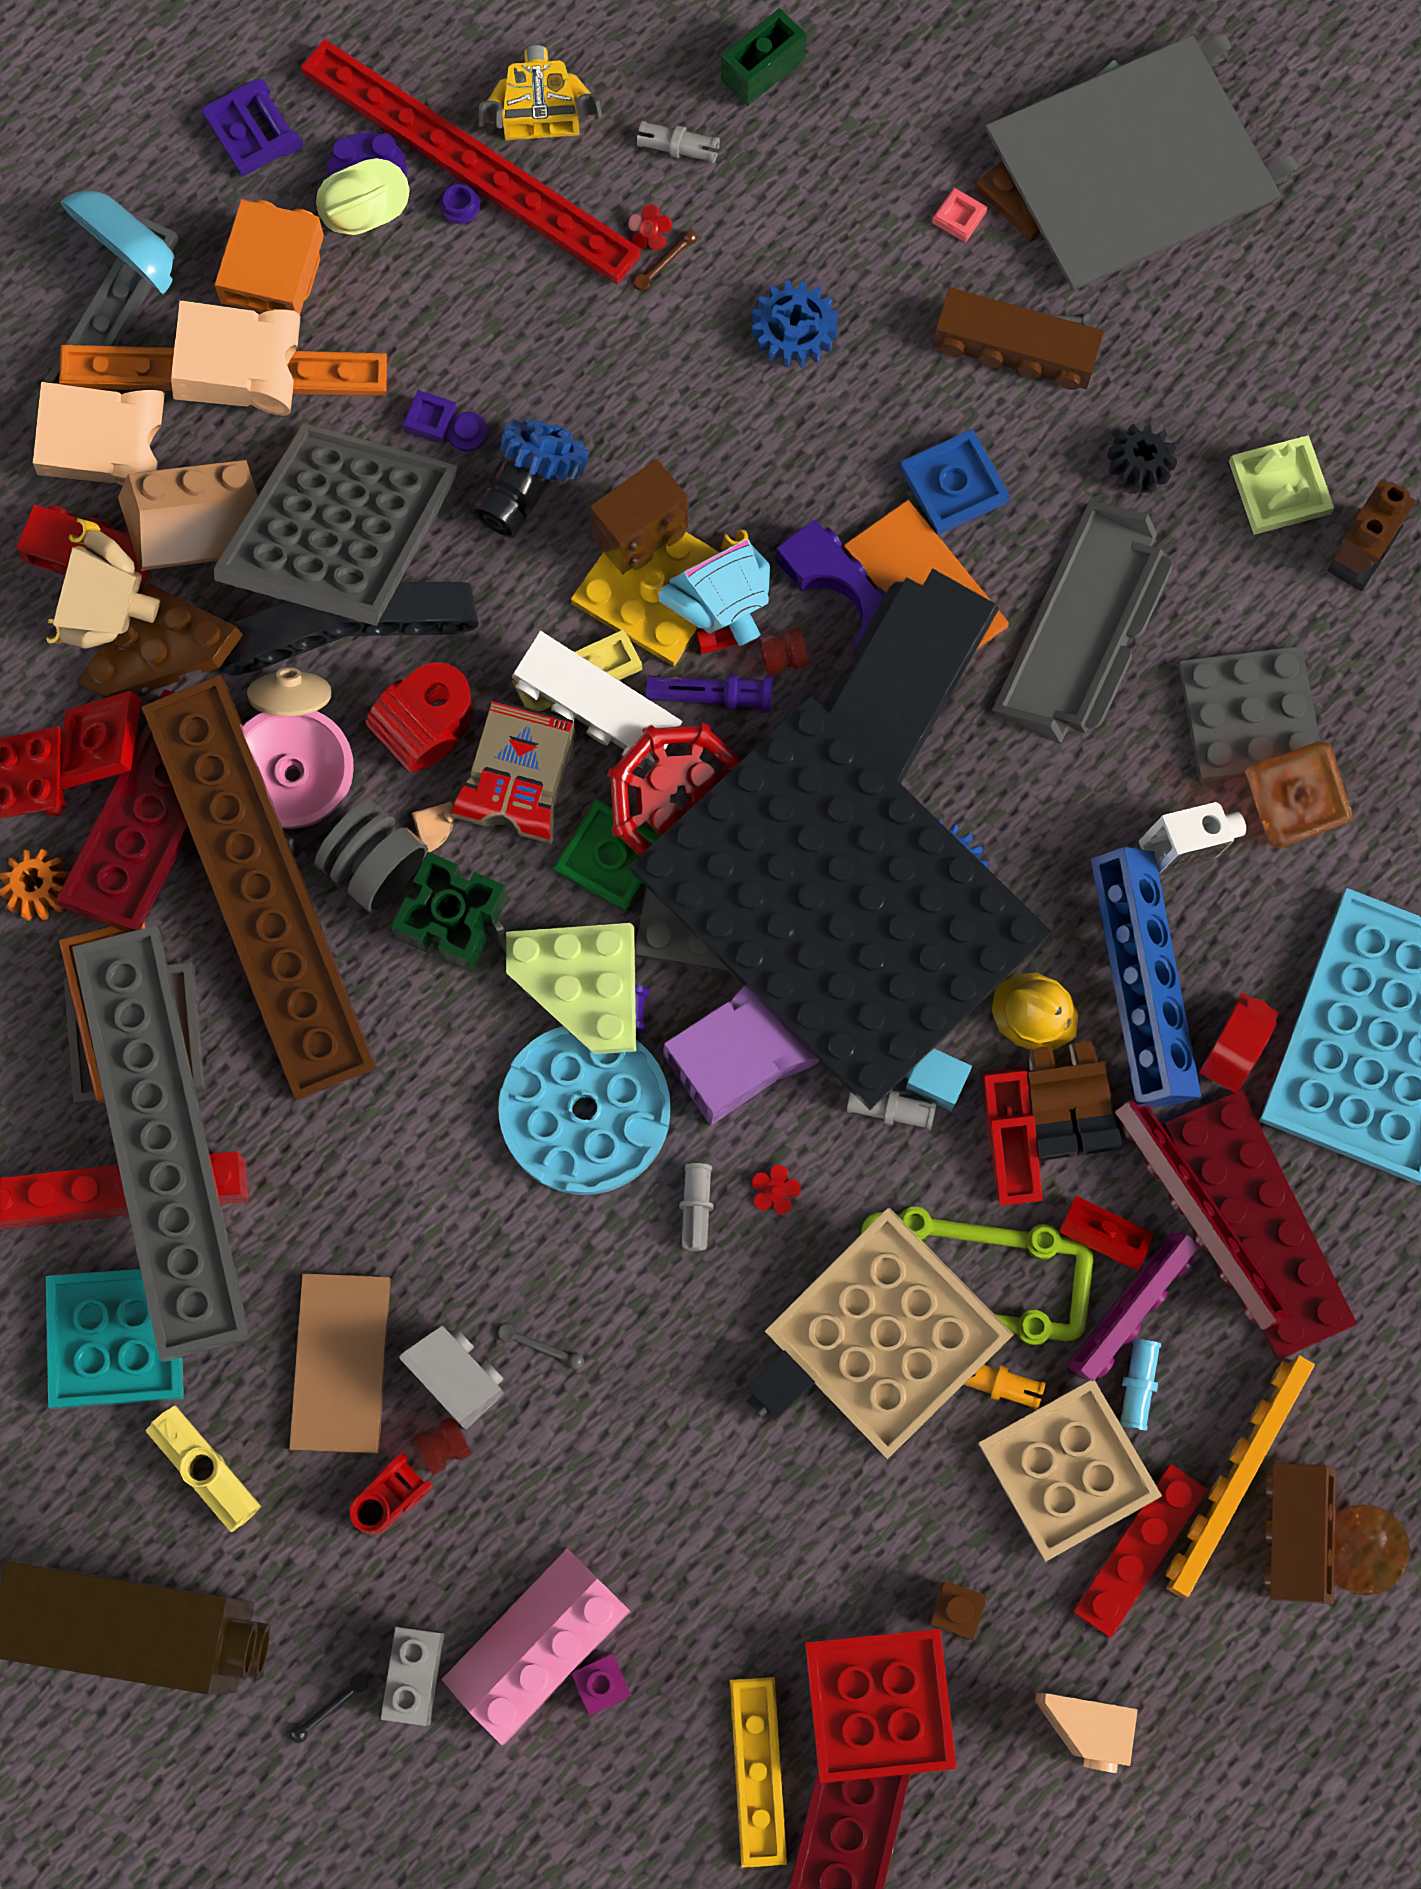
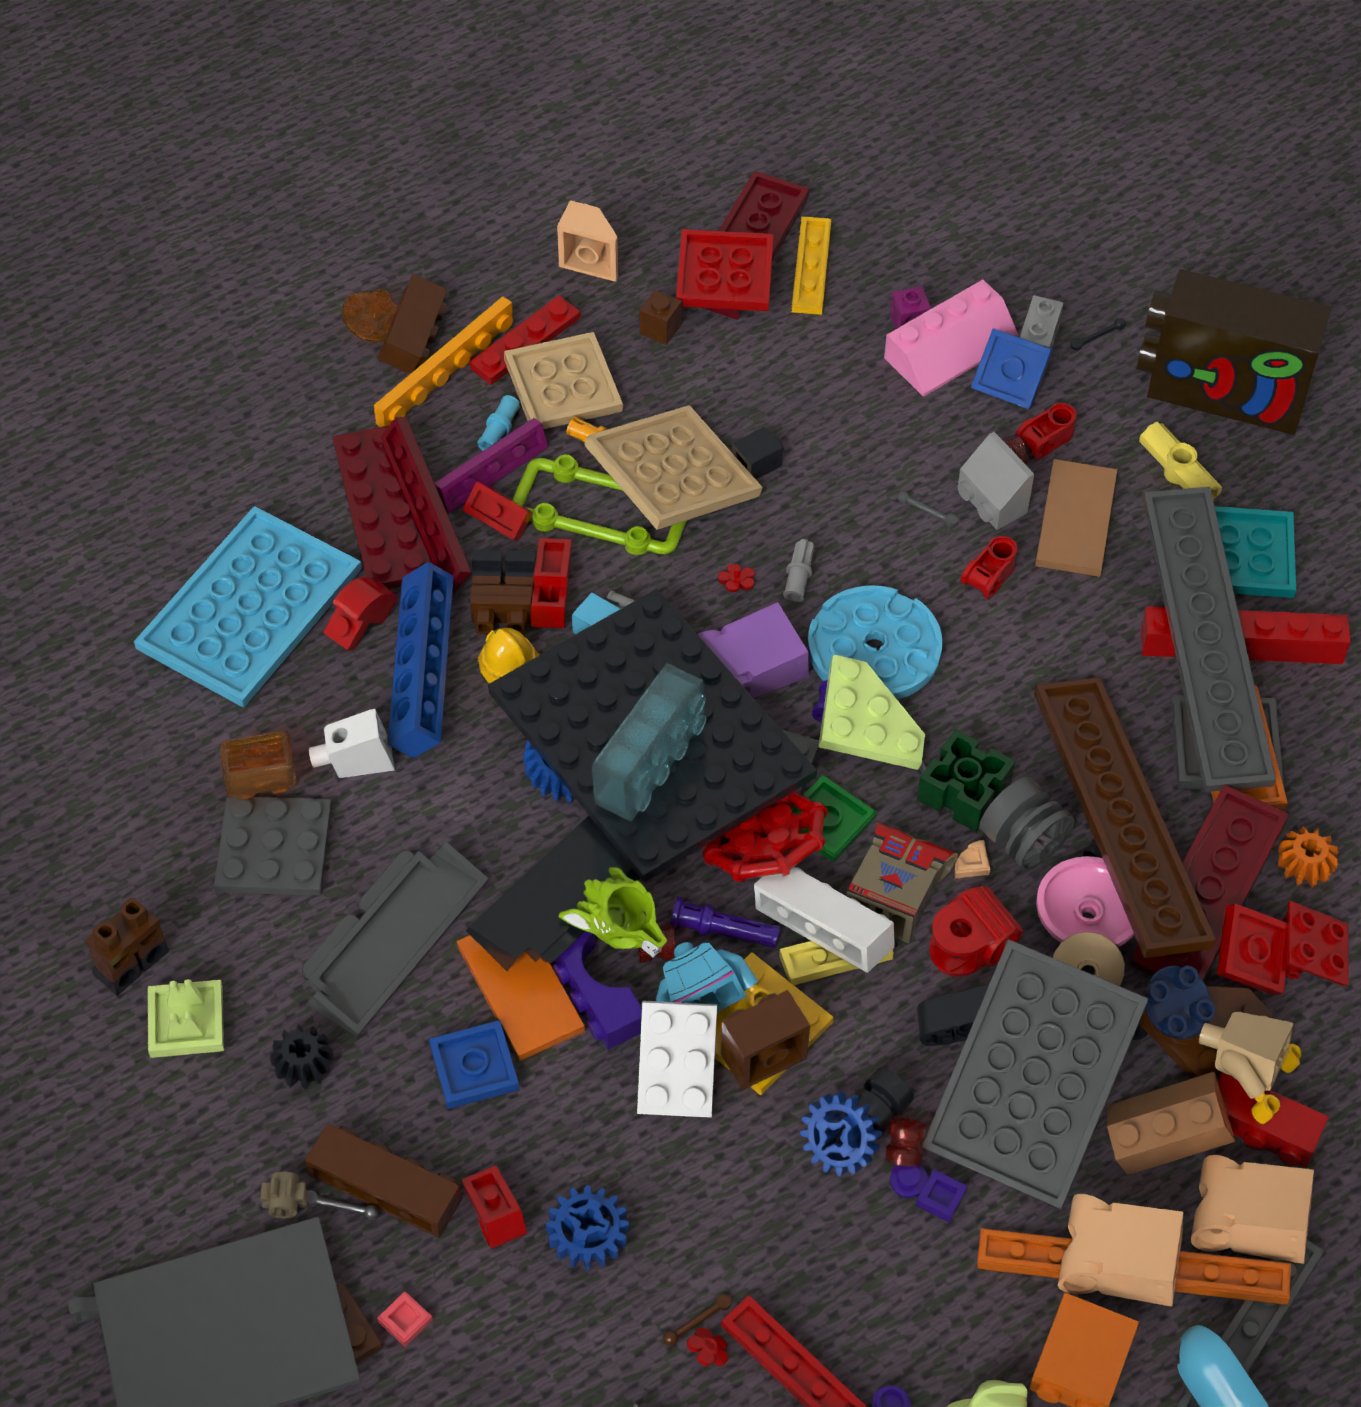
camera: 170 degrees left, 20 degrees down
(182, 631) = (1178, 1002): none -> dark blue dish
(446, 1592) = (1011, 368): none -> blue plate
(448, 1246) = (987, 570): none -> red piece
(473, 449) = (905, 1141): none -> clear red wheel
(733, 501) = (677, 1059): none -> white plate
(830, 638) = (617, 913): none -> lime piece
(834, 827) = (649, 742): none -> clear light blue brick
(895, 324) = (495, 1207): none -> red plate
(1116, 305) = (284, 1195): none -> dark tan gear

